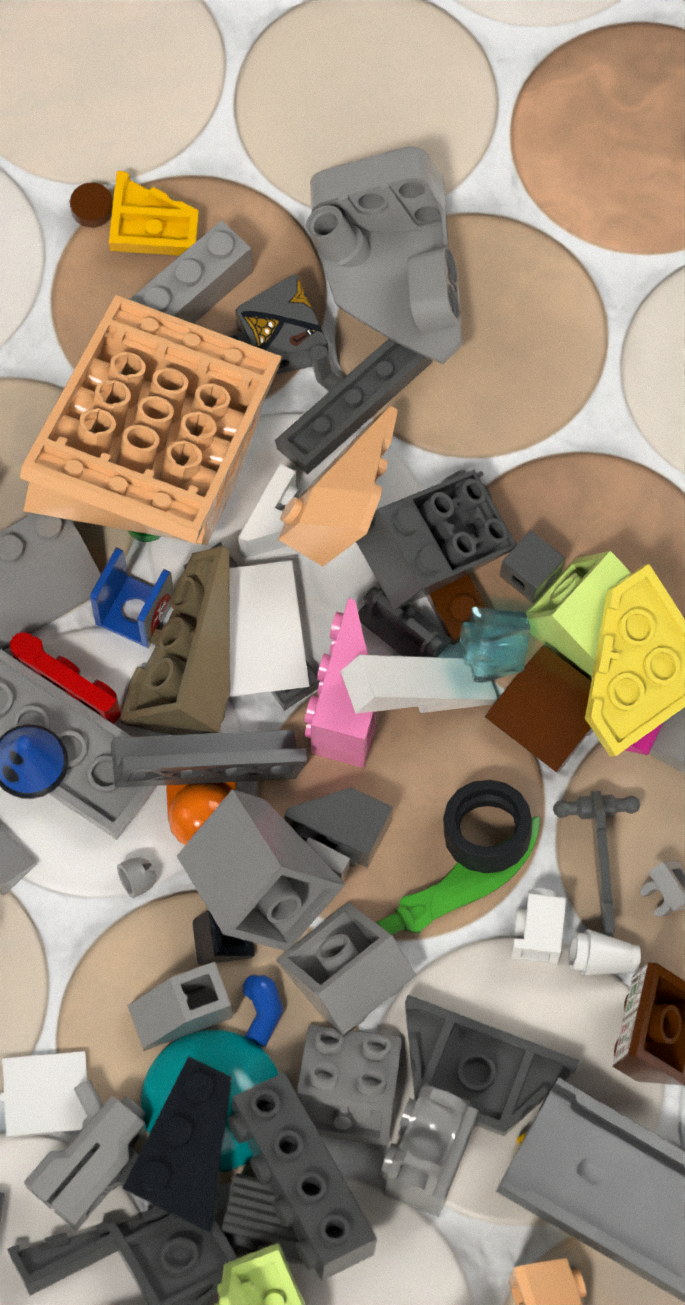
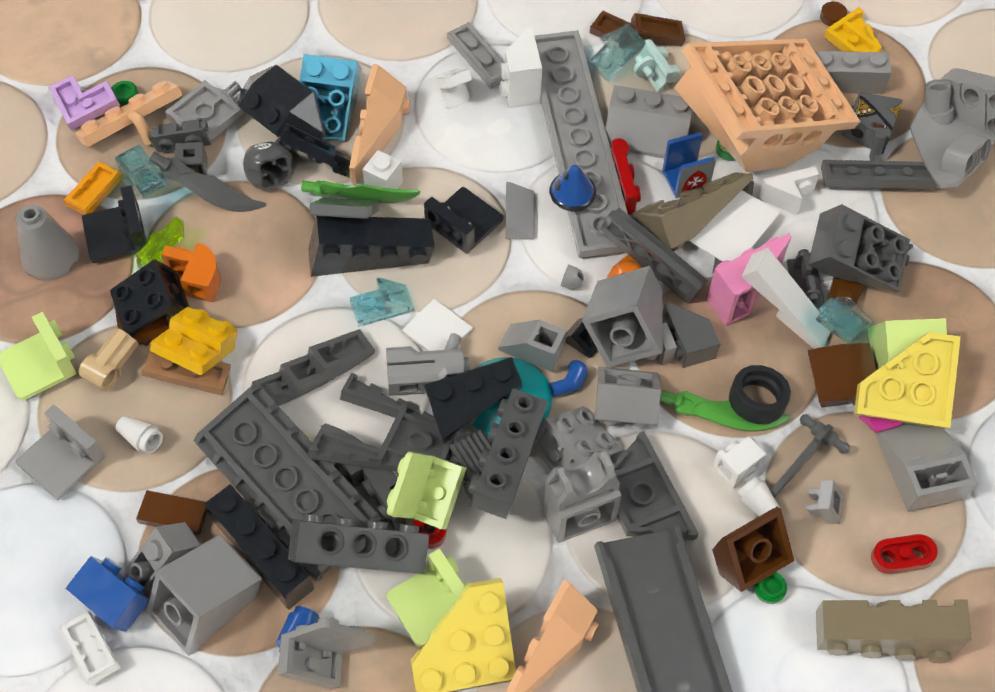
camera: 45 degrees right, 10 degrees down
(342, 498) = (814, 196): light nougat wedge -> none
(531, 566) = (898, 304): dark grey piece -> none

